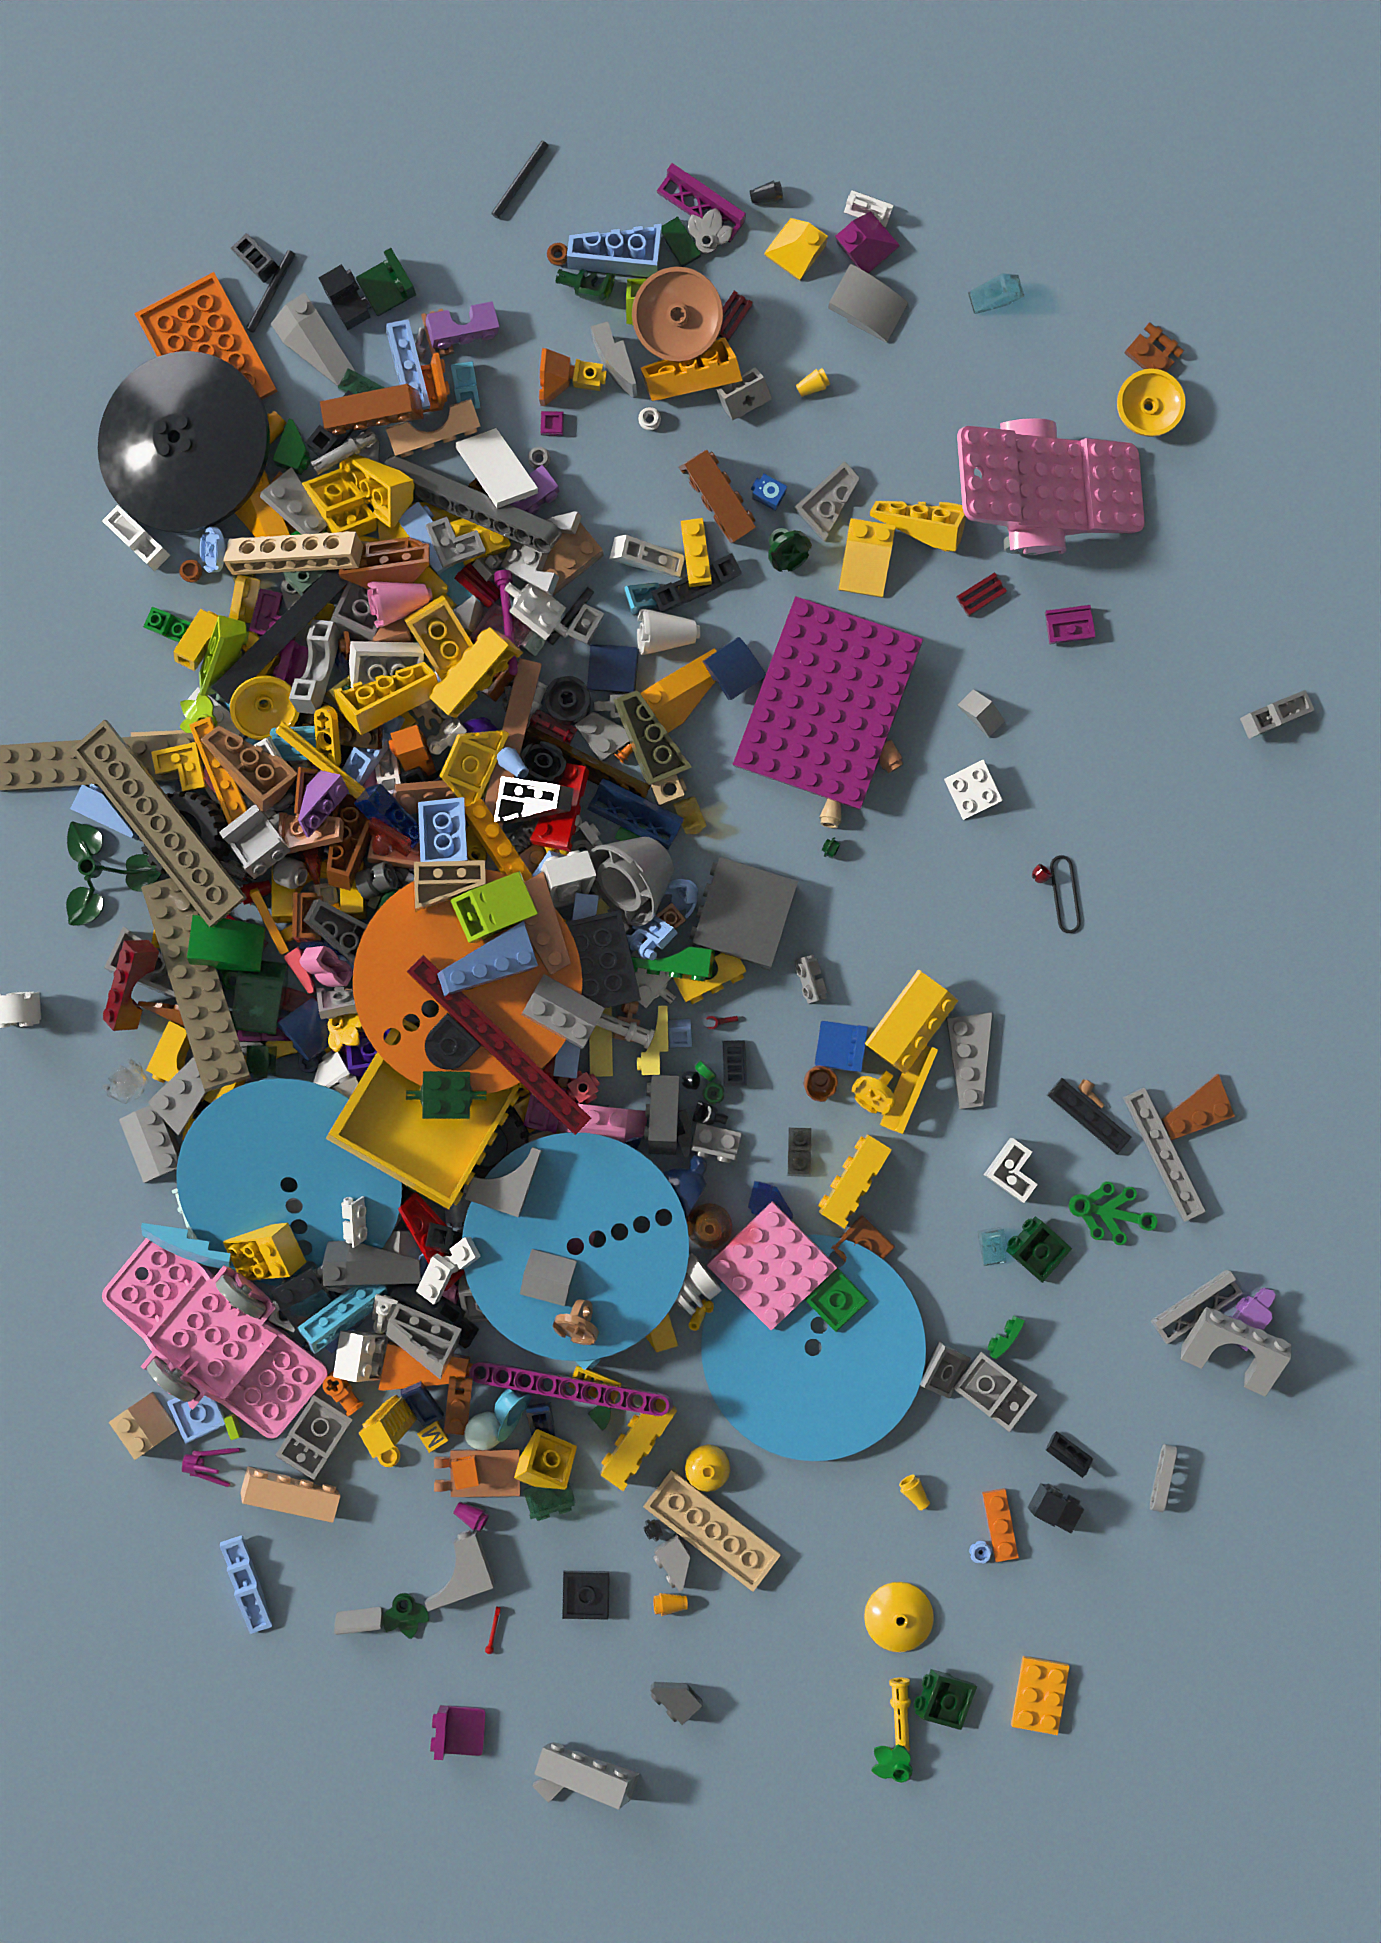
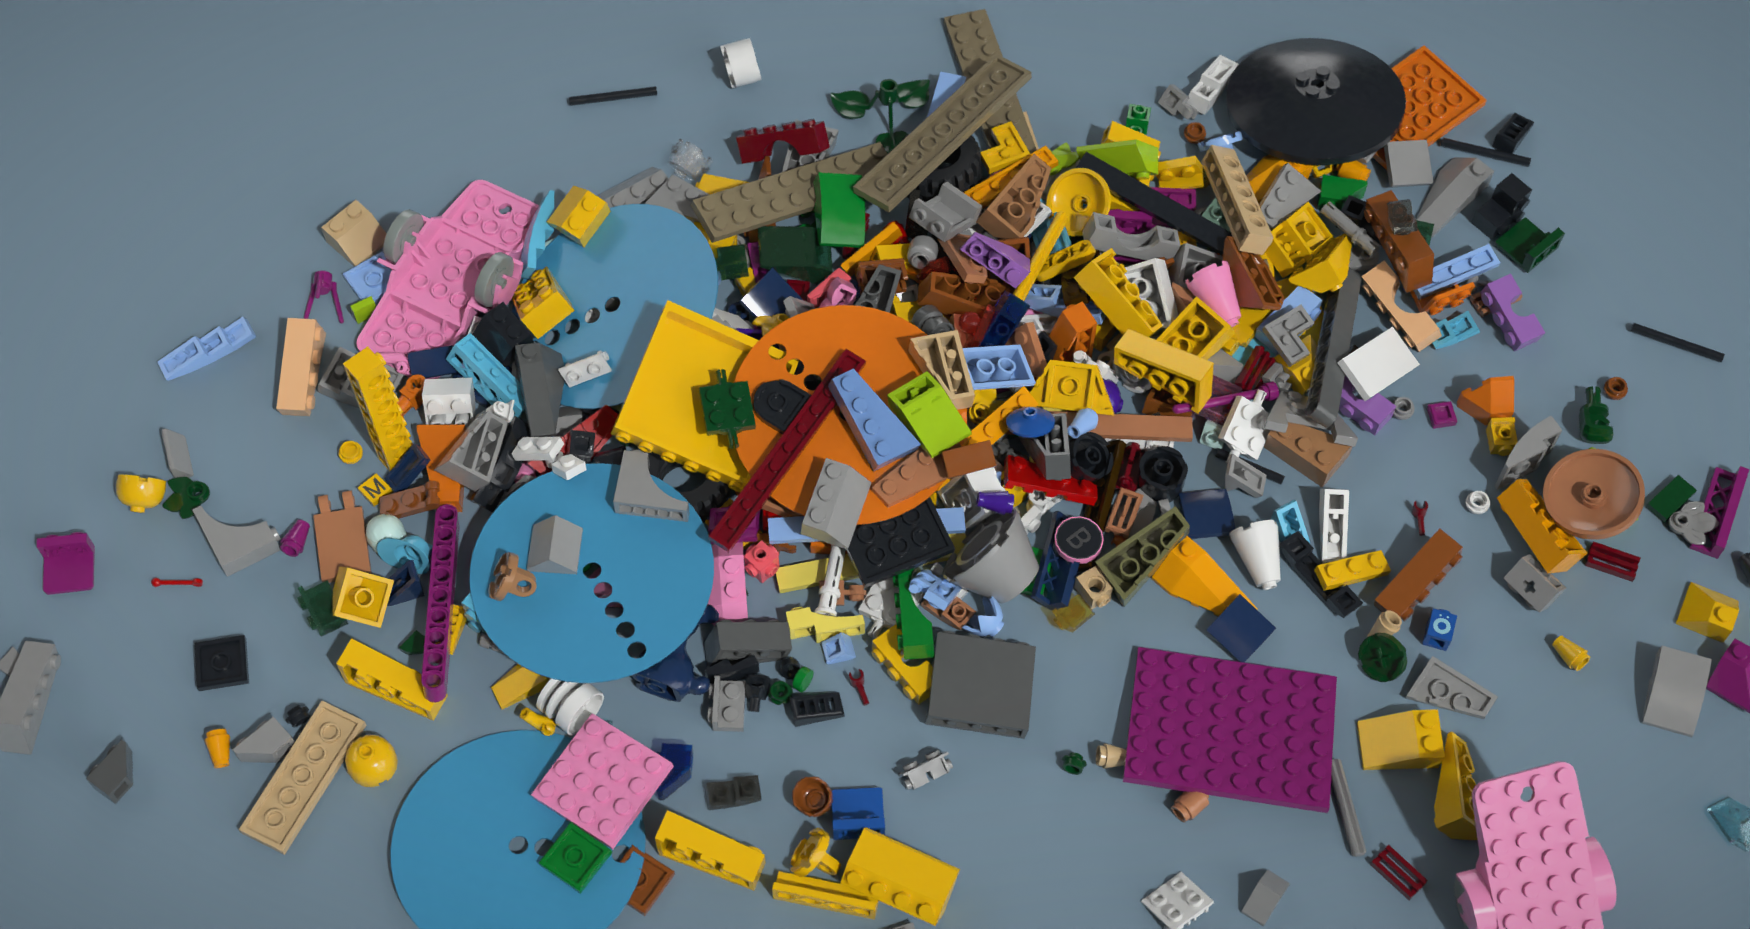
camera: 75 degrees right, 25 degrees down
(23, 1145) = (610, 96): none -> black bar
(151, 581) = (1175, 101): none -> light grey plate
(181, 1204) = (579, 215): none -> yellow slope
(274, 371) = (1408, 163): none -> light grey tile
(301, 1398) = (398, 359): none -> bright pink arm
(312, 1368) = (431, 362): none -> dark blue slope
(362, 402) = (1401, 217): none -> clear smoke bracket
(396, 1659) = (140, 492): none -> yellow cylinder
(465, 1472) = (340, 519): orange panel -> none
(515, 812) = (1030, 422): none -> blue dish
(545, 879) = (968, 459): none -> dark orange hinge
(590, 861) = (998, 501): none -> dark purple cone
(617, 252) = (1639, 436): light blue wedge -> none
(617, 755) = (1118, 529): none -> nougat tile
(624, 794) = (1078, 540): none -> black tile
(652, 475) = (1420, 514): none -> dark red hand
(709, 1215) = (635, 712): clear orange cone -> none
(760, 540) = (1387, 622): none -> tan cone
(918, 622) = (1347, 809): none -> light grey axle

